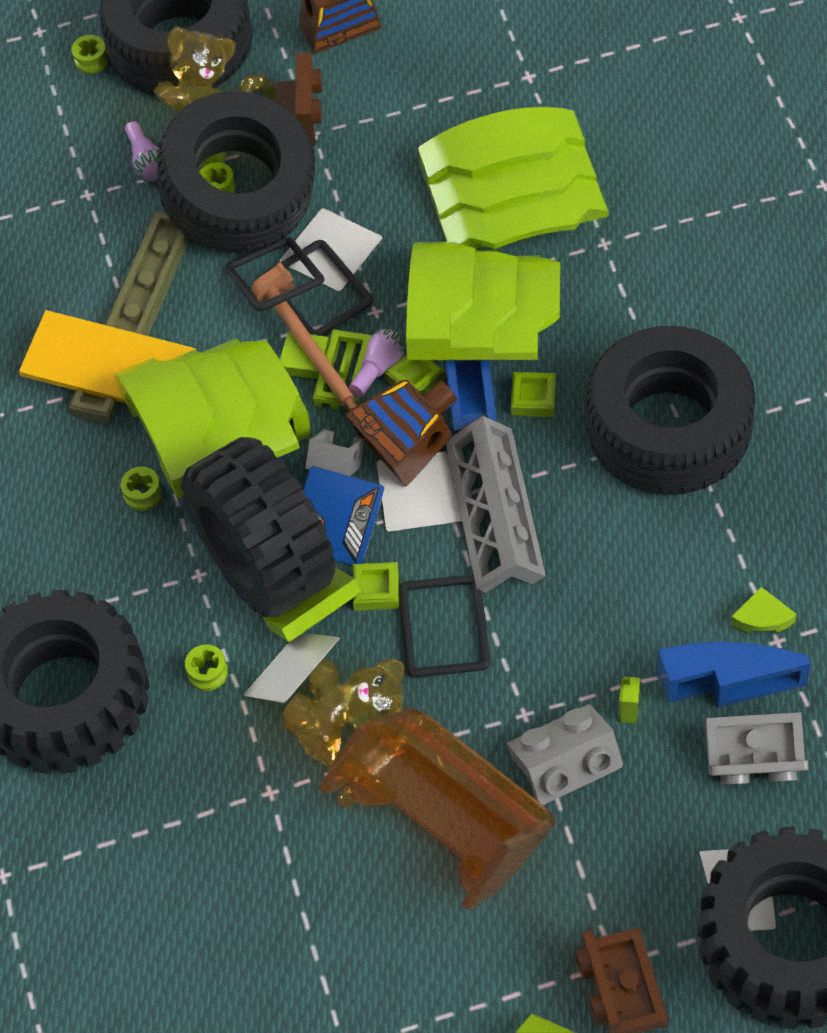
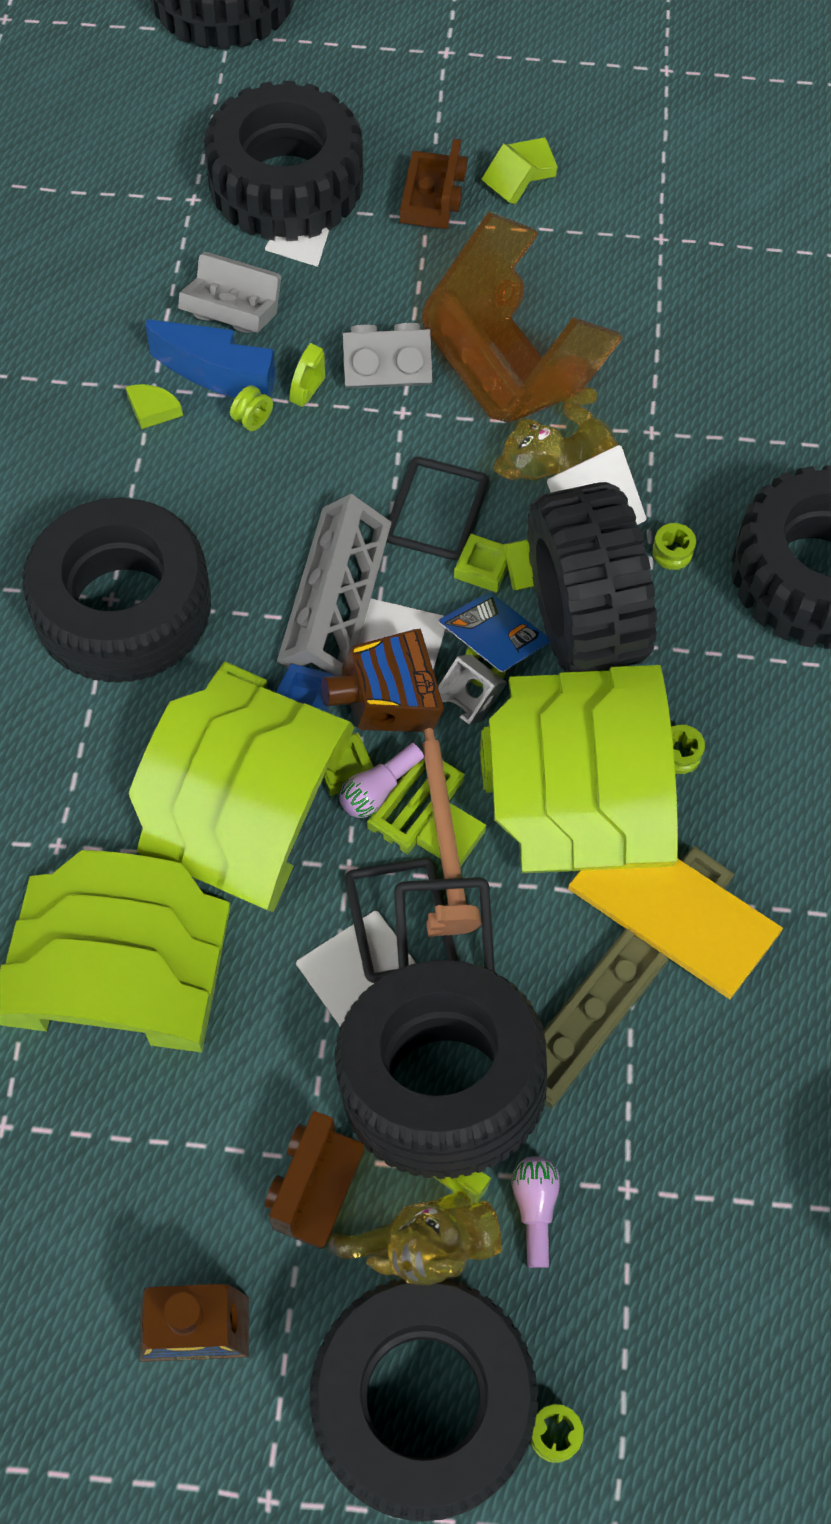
camera: 165 degrees left, 5 degrees up
(662, 635) = (251, 408): none -> lime bush

